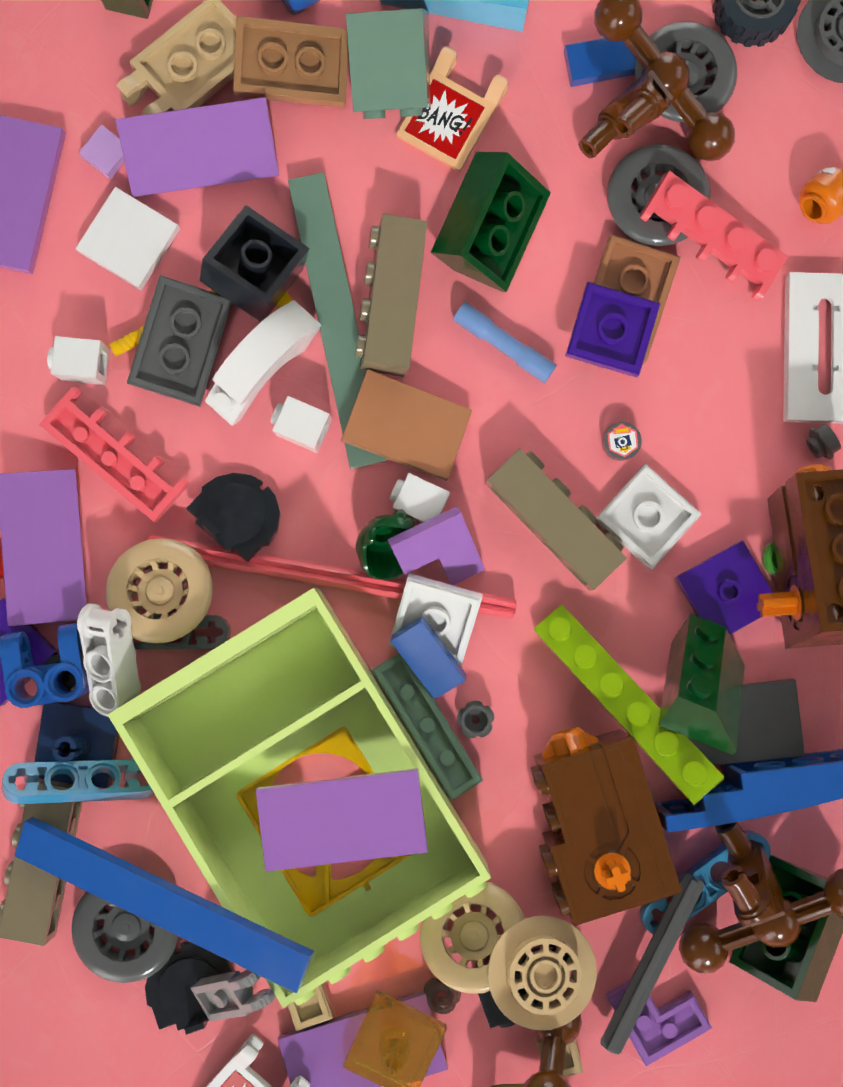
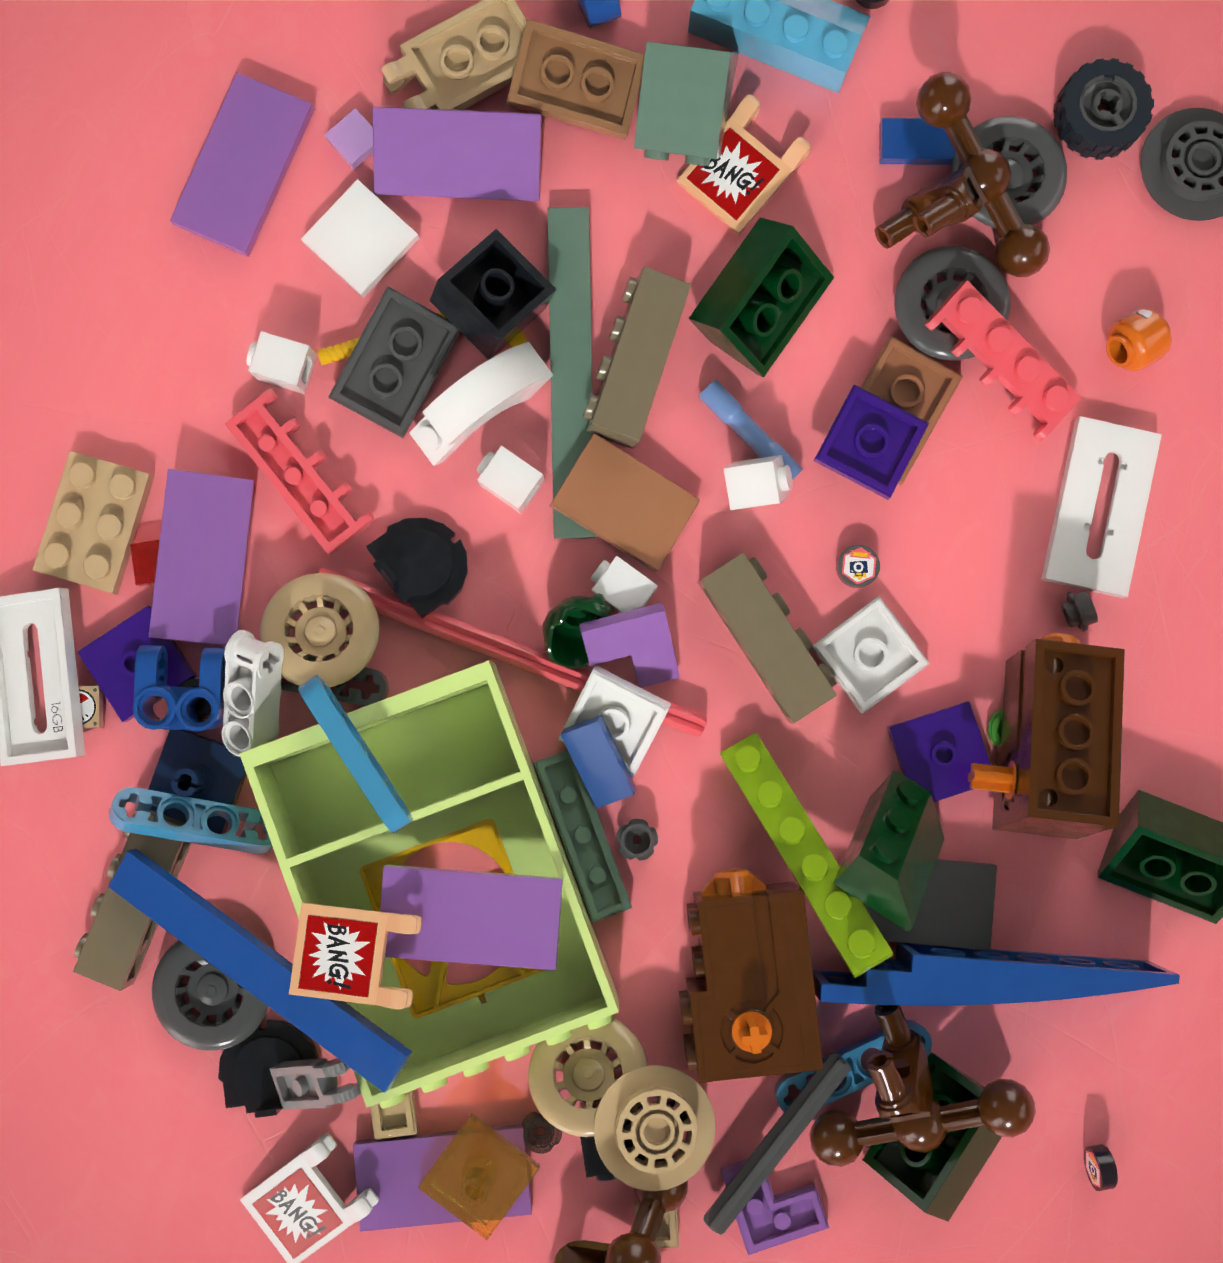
camera: 15 degrees right, 0 degrees up
(211, 694) = (355, 754): none -> dark azure beam
(236, 876) = (343, 954): none -> flag
(520, 384) = (757, 482): none -> white brick

